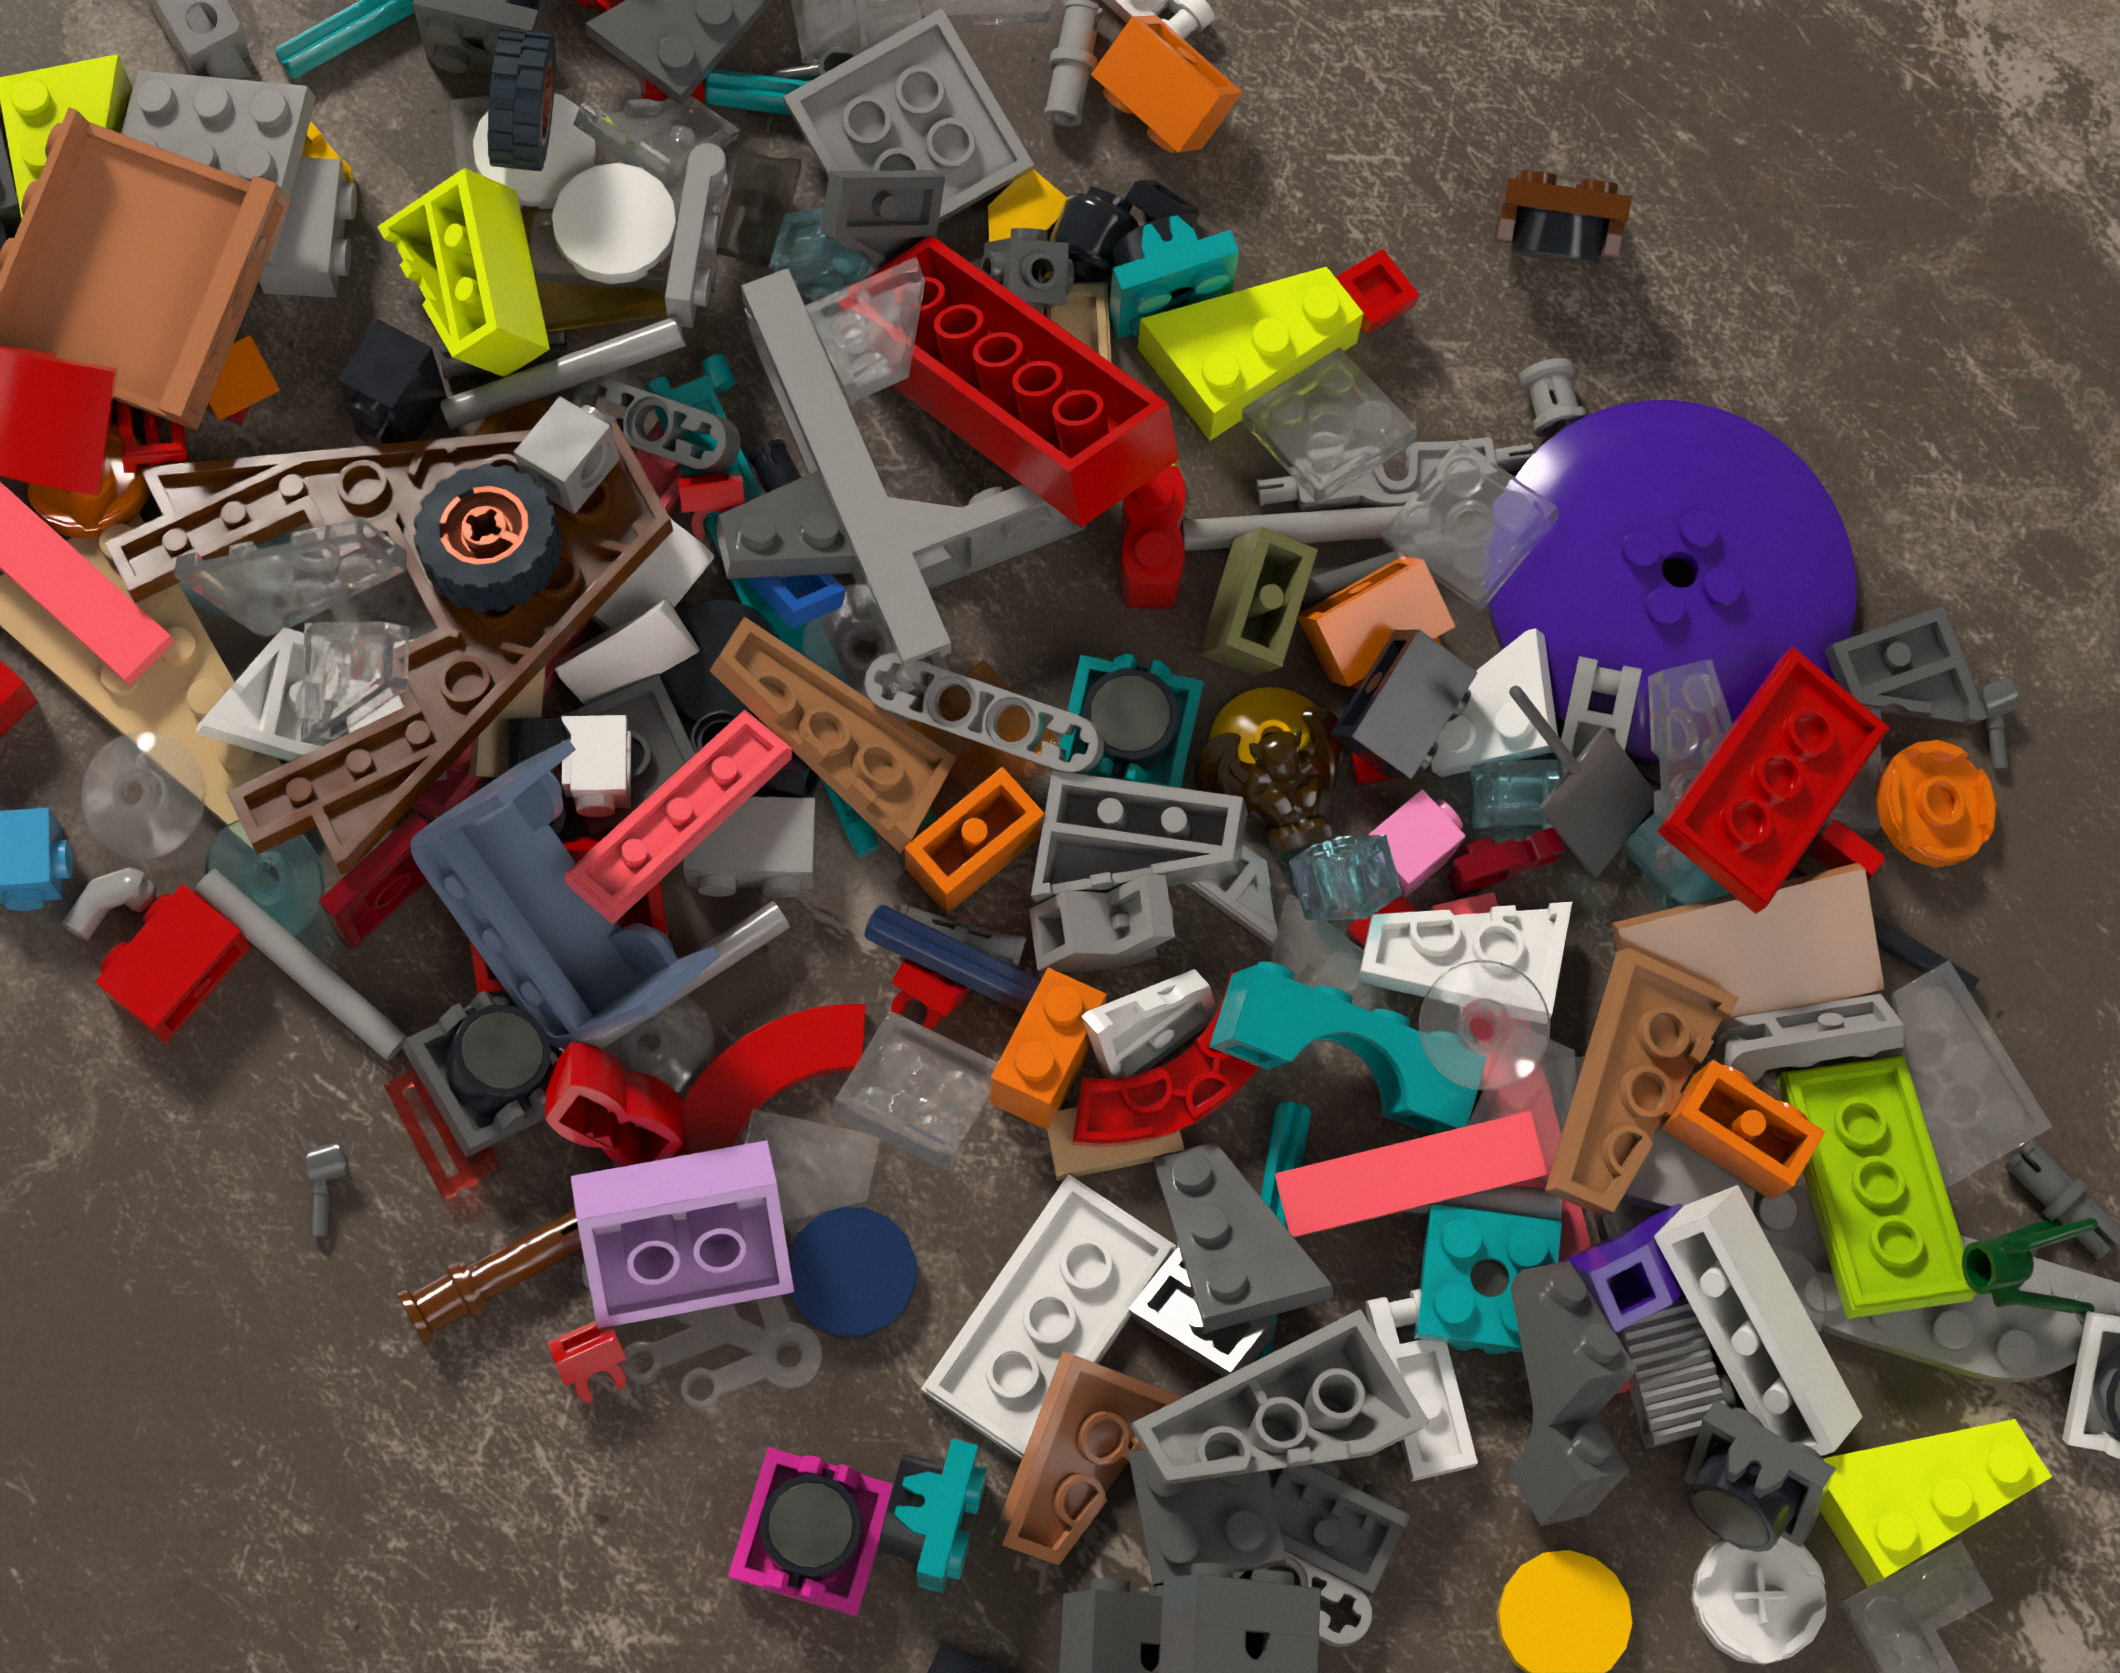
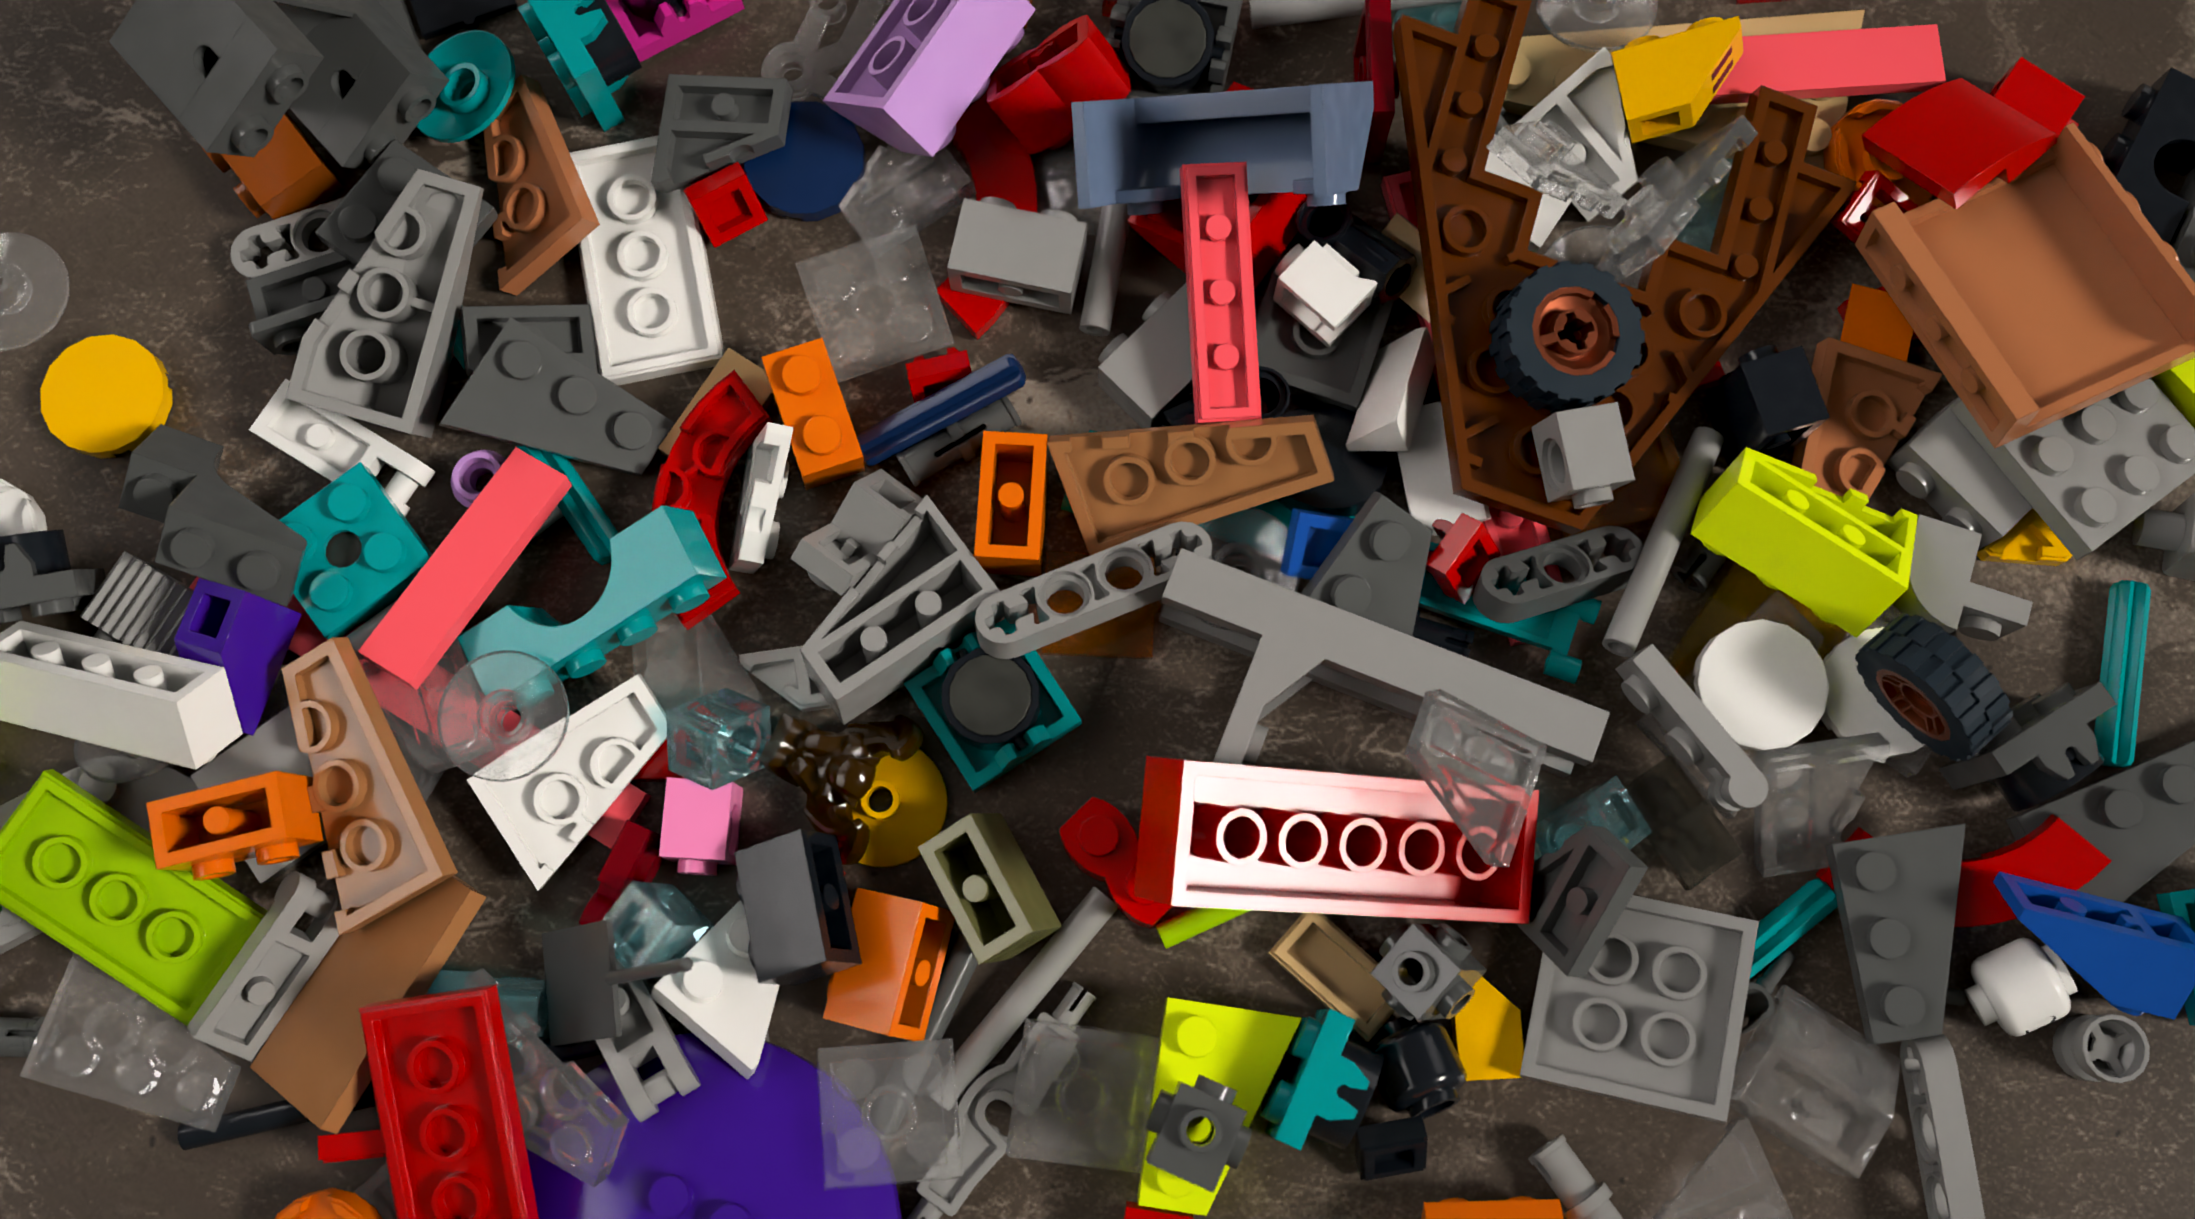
camera: 140 degrees right, 5 degrees up
(183, 654) = (1675, 77): none -> yellow slope
(316, 337) = (1869, 411): none -> nougat wing
(409, 174) = (1942, 585): none -> light grey brick
(779, 1013) = (1017, 254): none -> light grey brick
(893, 1349) = (715, 124): none -> dark grey wing
(947, 1288) = (725, 204): none -> red tile
(1015, 1595) = (478, 85): none -> teal dish
(1285, 298) = (1205, 1159): none -> dark grey brick
(1351, 1244) = (469, 470): none -> lavender plate

